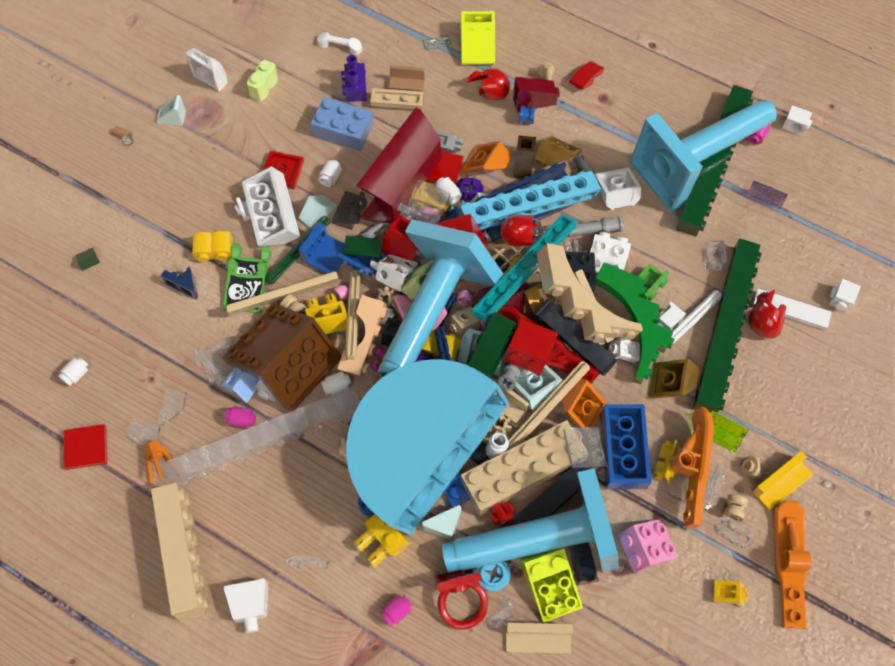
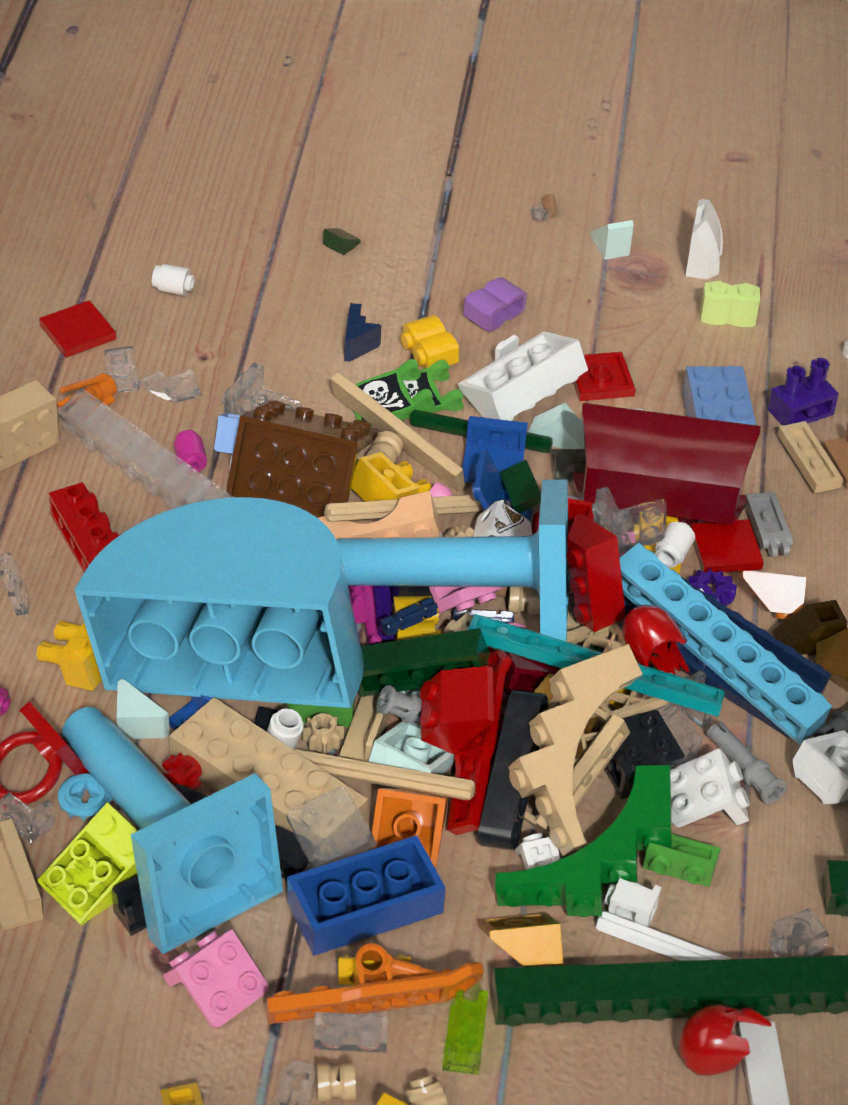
camera: 65 degrees right, 20 degrees down
(196, 198) = (494, 304): none -> medium lavender brick
(287, 502) = (81, 522): none -> red brick

